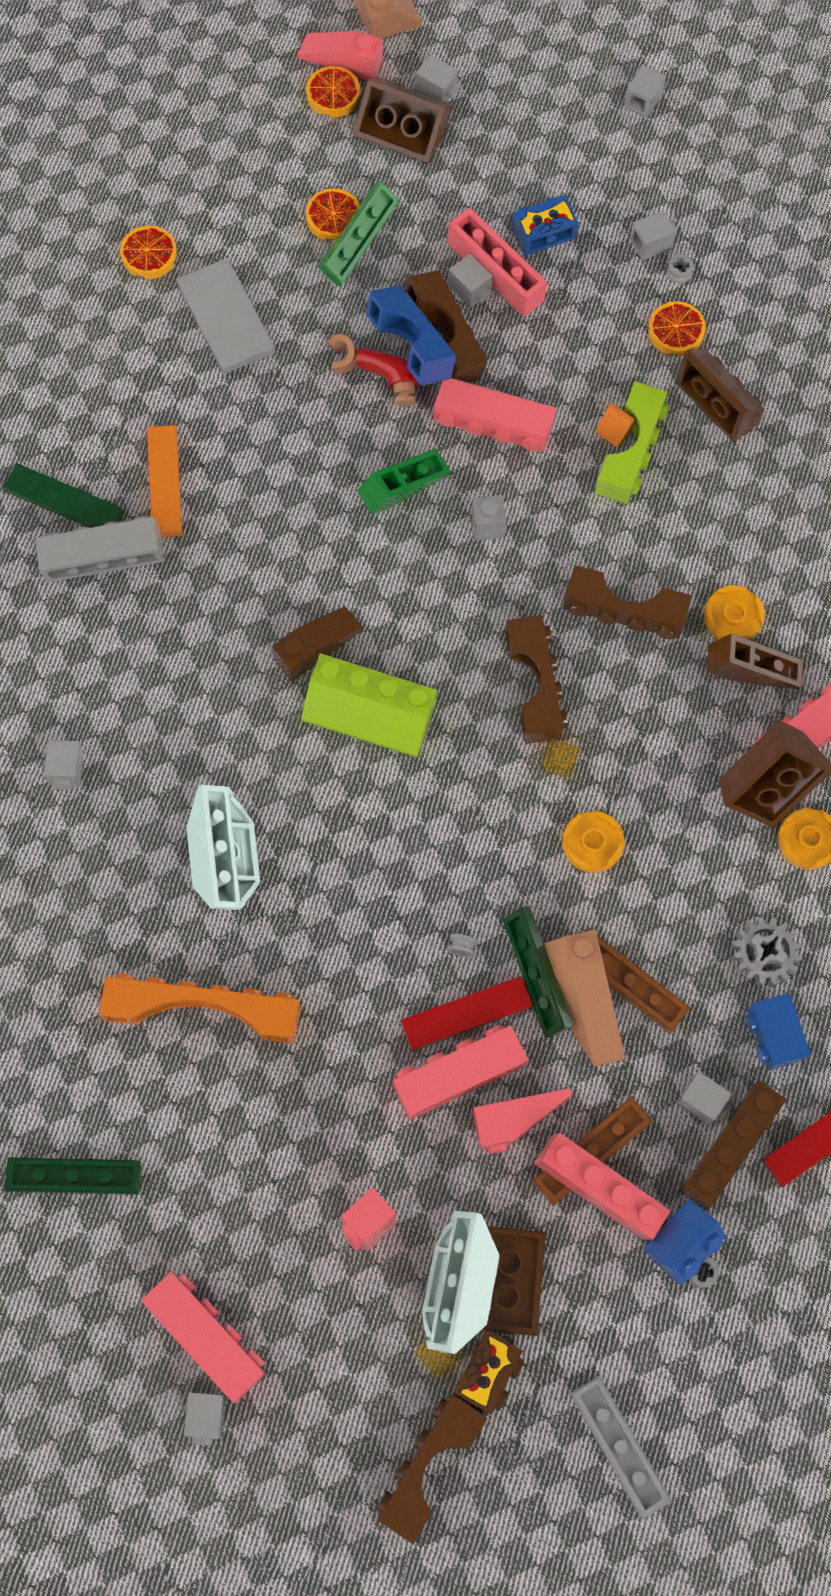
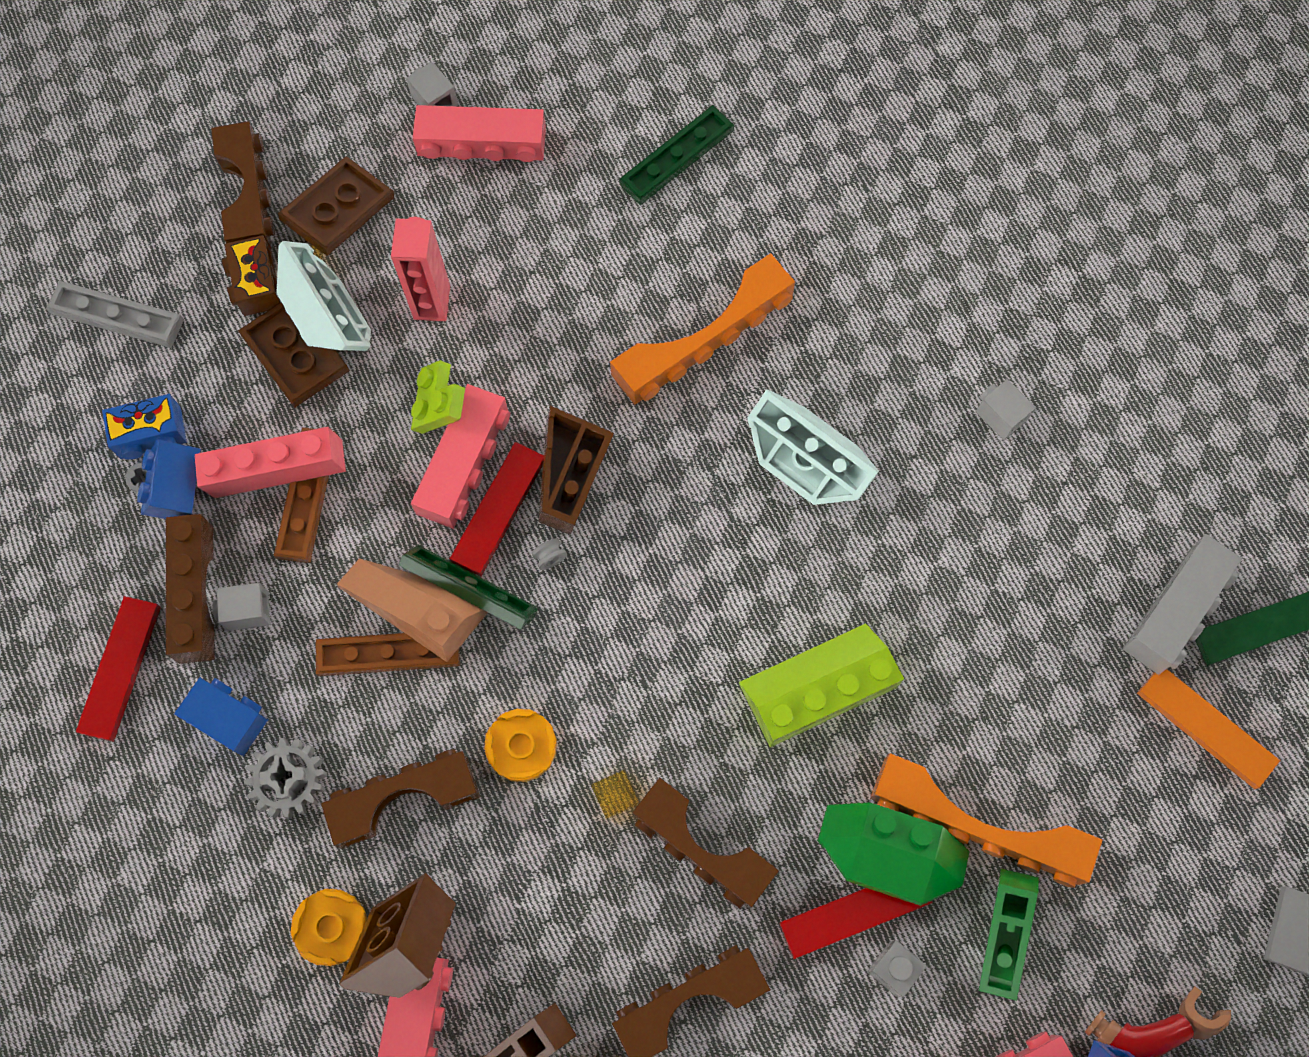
camera: 140 degrees right, 0 degrees up
(302, 647) = (923, 699): reddish brown slope -> none
(330, 497) = (1059, 851): none -> orange arch
(371, 1378) = (336, 205): none -> reddish brown tile
(396, 985) = (569, 467): none -> reddish brown wedge
(430, 576) = (893, 851): none -> green wedge
(447, 1129) = (435, 400): none -> lime plate
(480, 569) = (841, 920): none -> red tile
(509, 1120) = (388, 455): coral slope -> none
(664, 859) = (356, 814): none -> reddish brown arch
(671, 1311) = (141, 424): none -> blue brick

